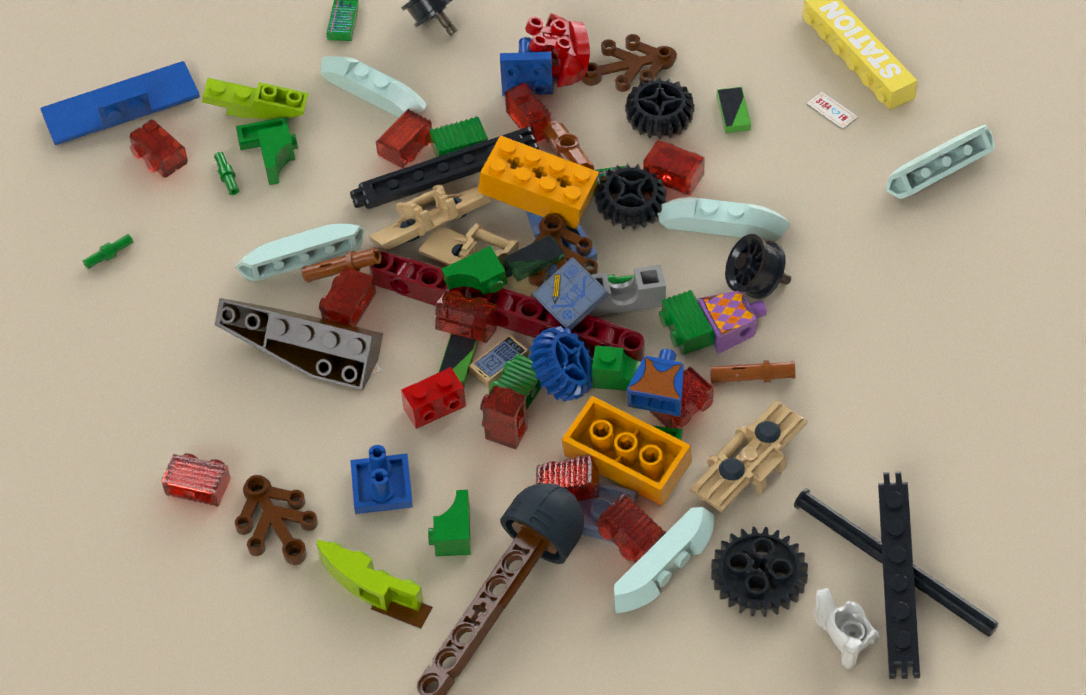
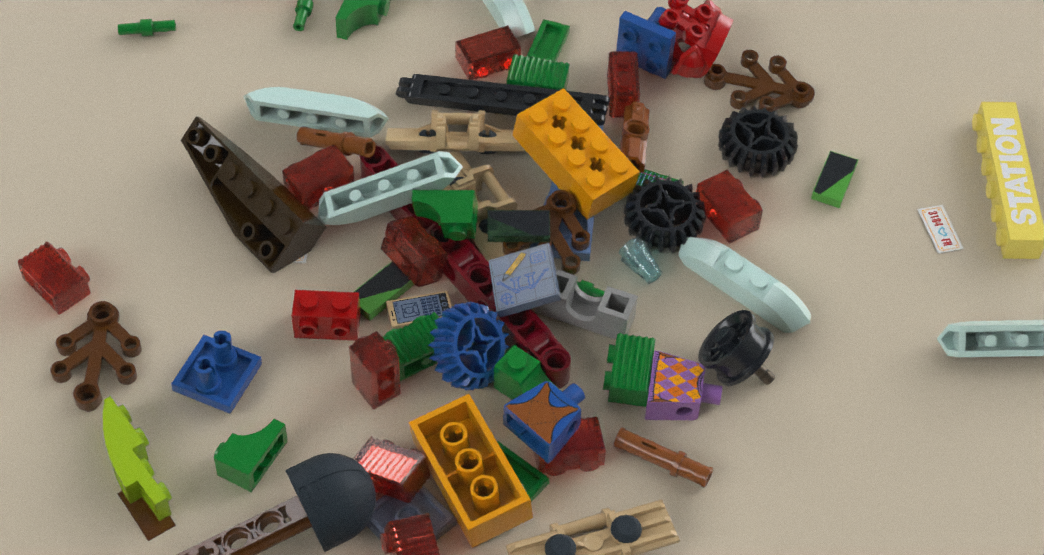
camera: 25 degrees right, 0 degrees up
(416, 280) = (387, 189): none -> light aqua brick
(443, 107) = (549, 40): none -> green tile
(636, 240) = (640, 259): none -> clear light blue cone

